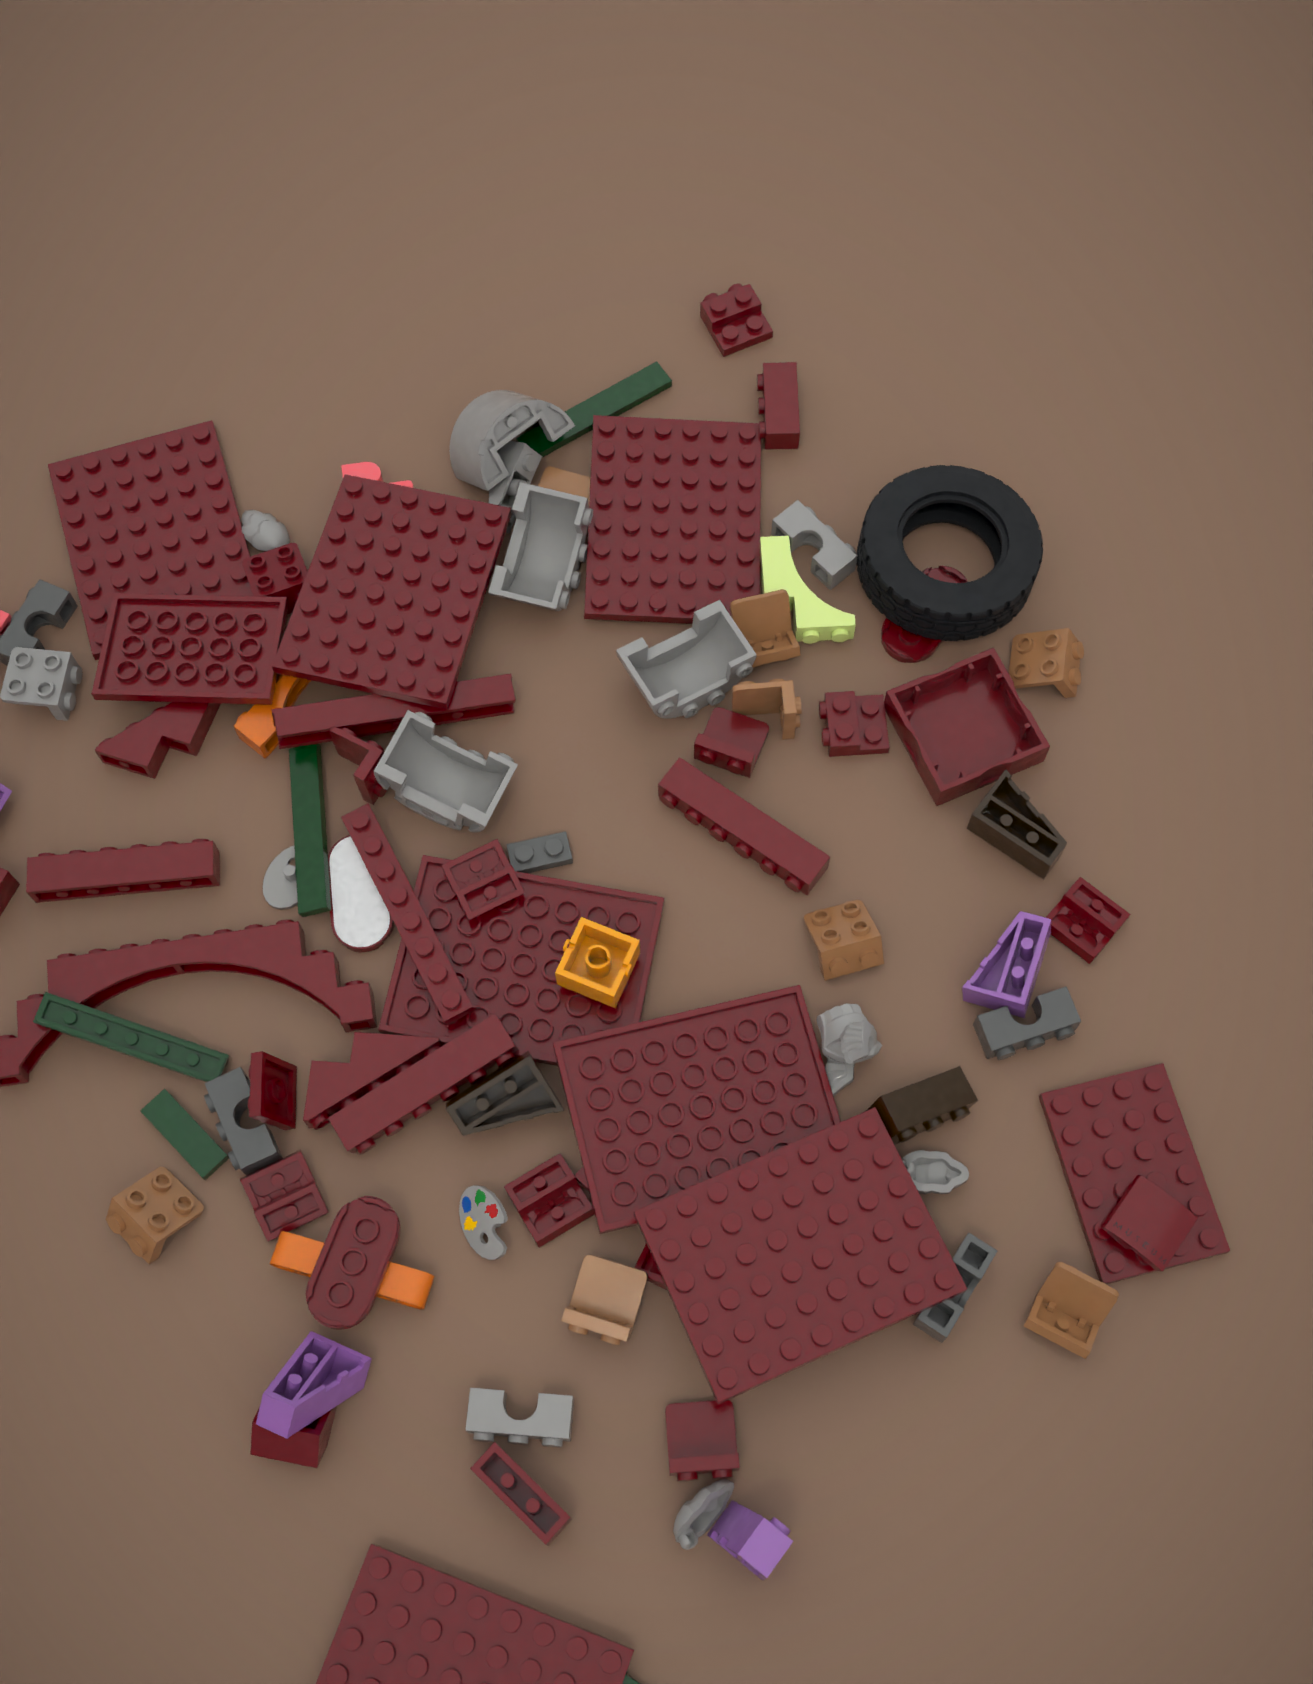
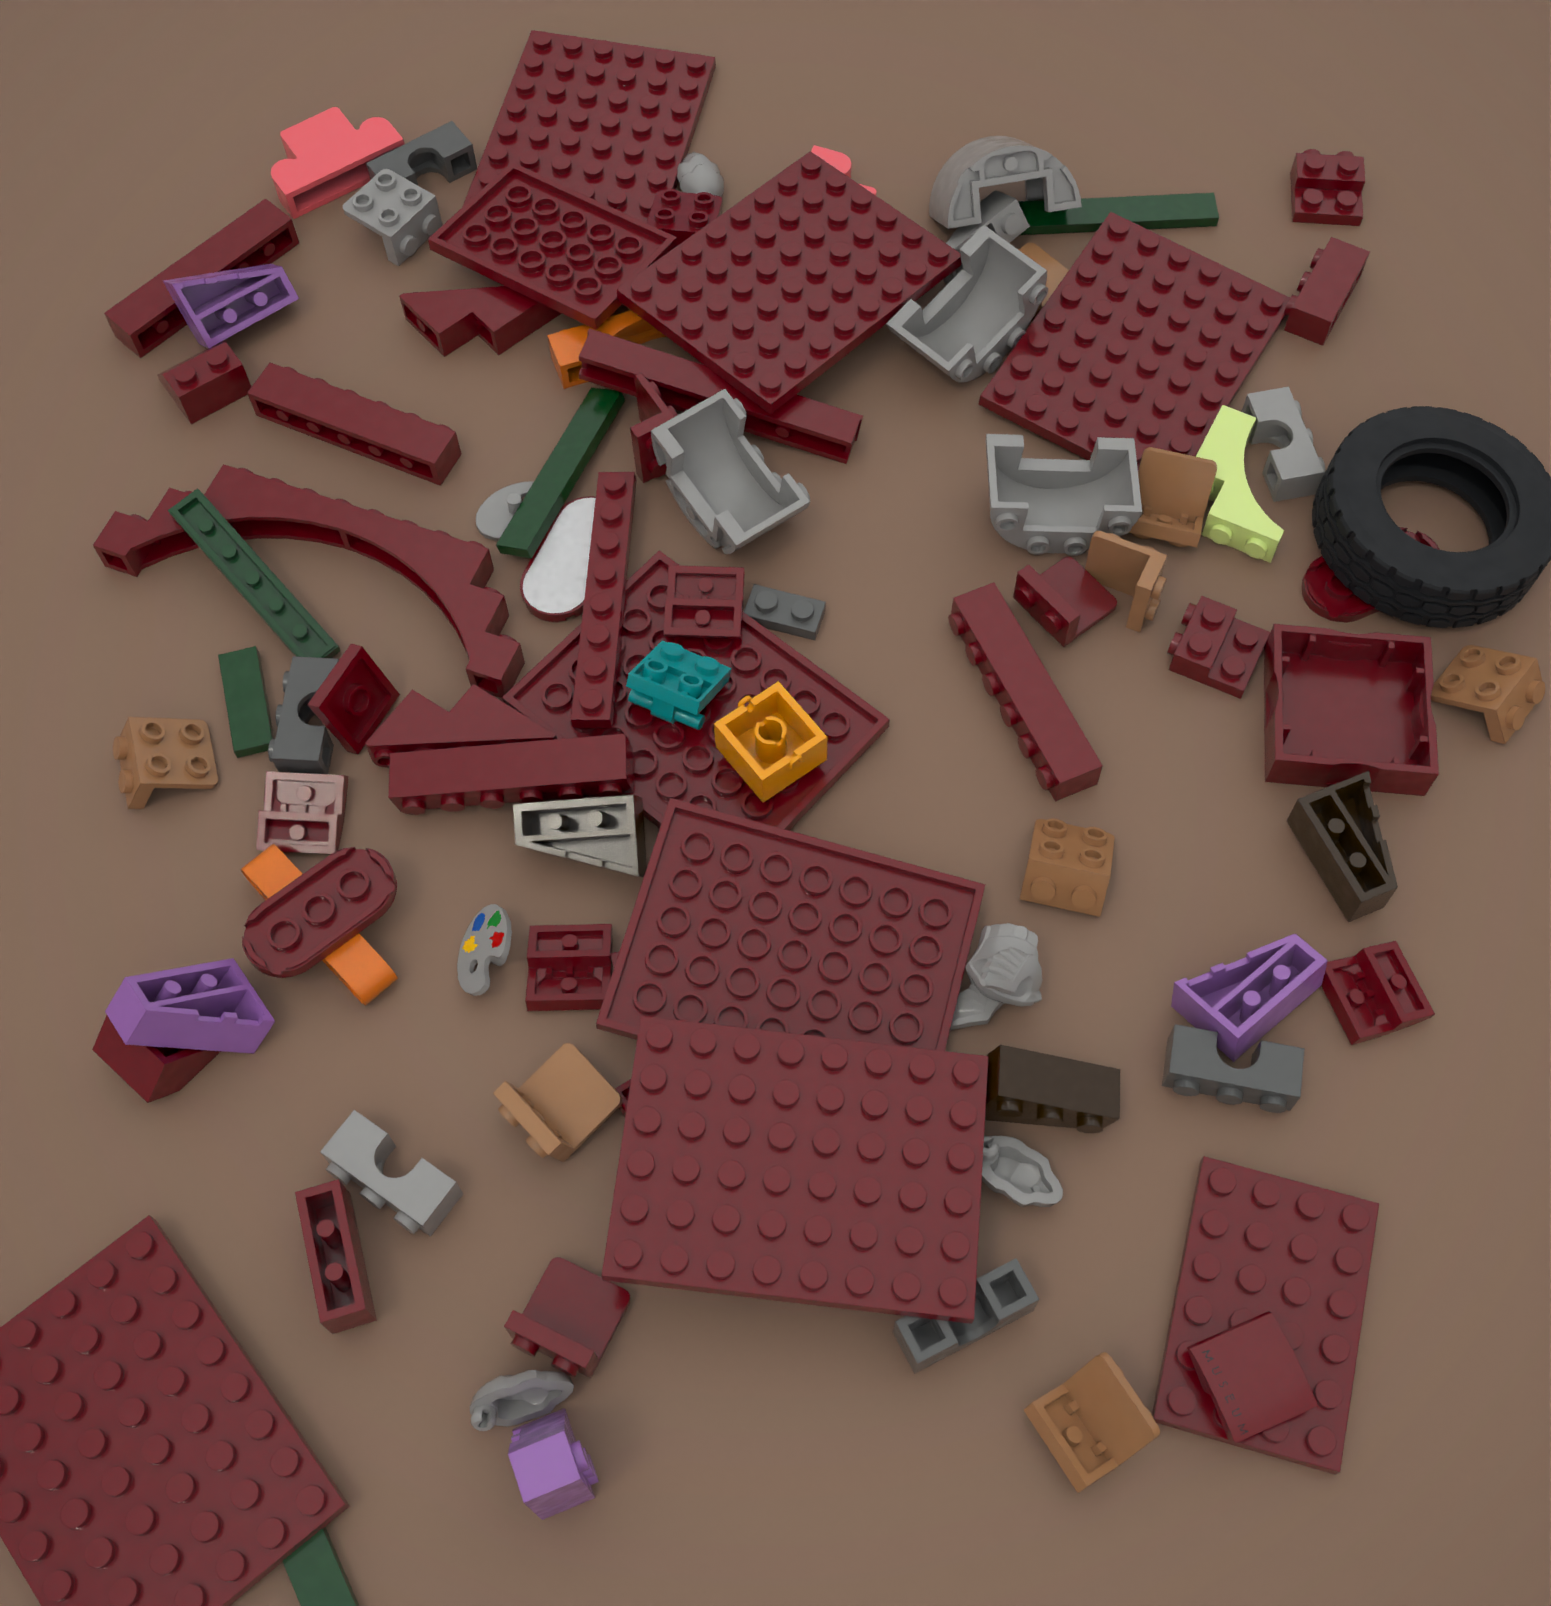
camera: 30 degrees right, 5 degrees down
(503, 952) = (676, 683): none -> teal plate

